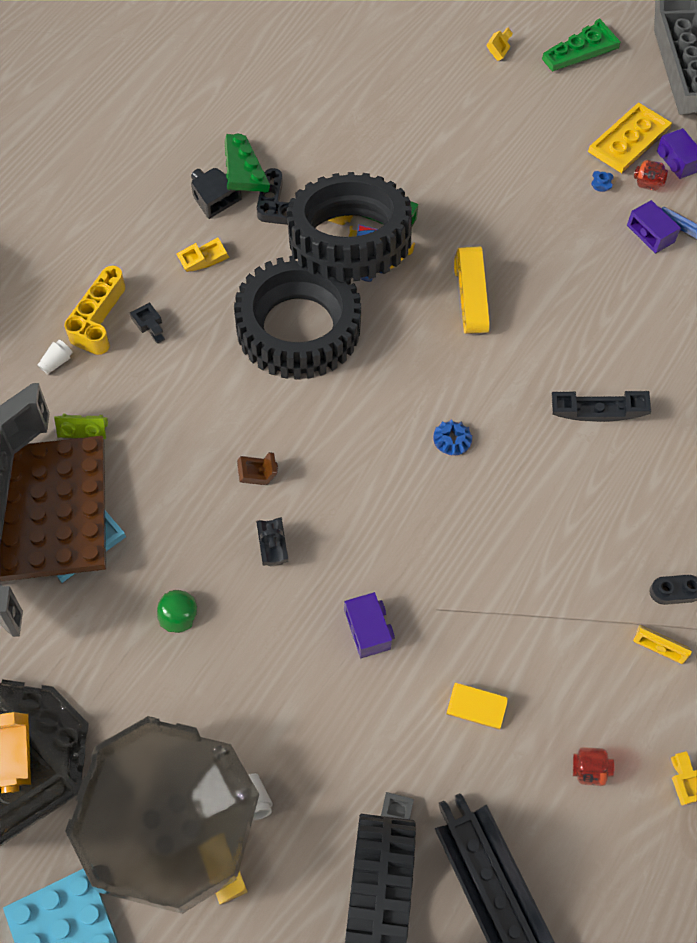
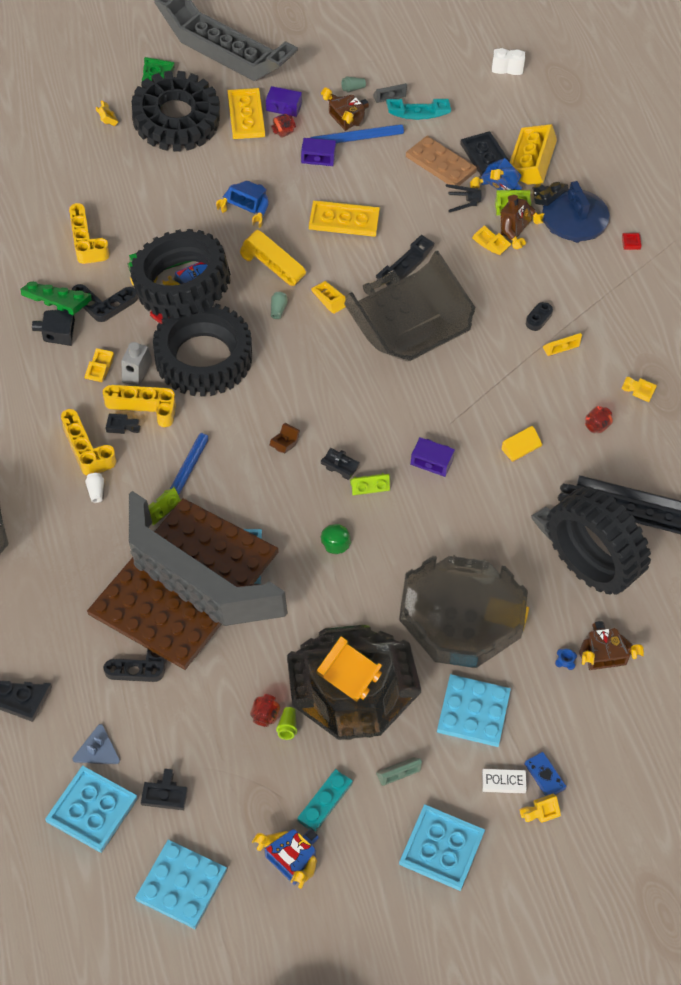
camera: 50 degrees left, 5 degrees down
(154, 410) = (189, 462): none -> blue axle
(201, 325) = (142, 399): none -> yellow beam
(224, 277) = (136, 357): none -> light grey torso
(269, 584) = (370, 484): none -> lime hinge
(329, 139) = (86, 249): none -> yellow beam
(423, 337) = (278, 304): none -> sand green cone
(445, 443) = (357, 345): blue gear -> none
(483, 374) = (331, 297): none -> yellow slope
(525, 215) = (248, 197): none -> blue torso
(530, 461) = (414, 311): none -> clear smoke windscreen
(561, 110) = (168, 130): none -> black tyre
(596, 311) = (344, 218): none -> yellow plate
(602, 181) = (261, 149): blue plate -> none

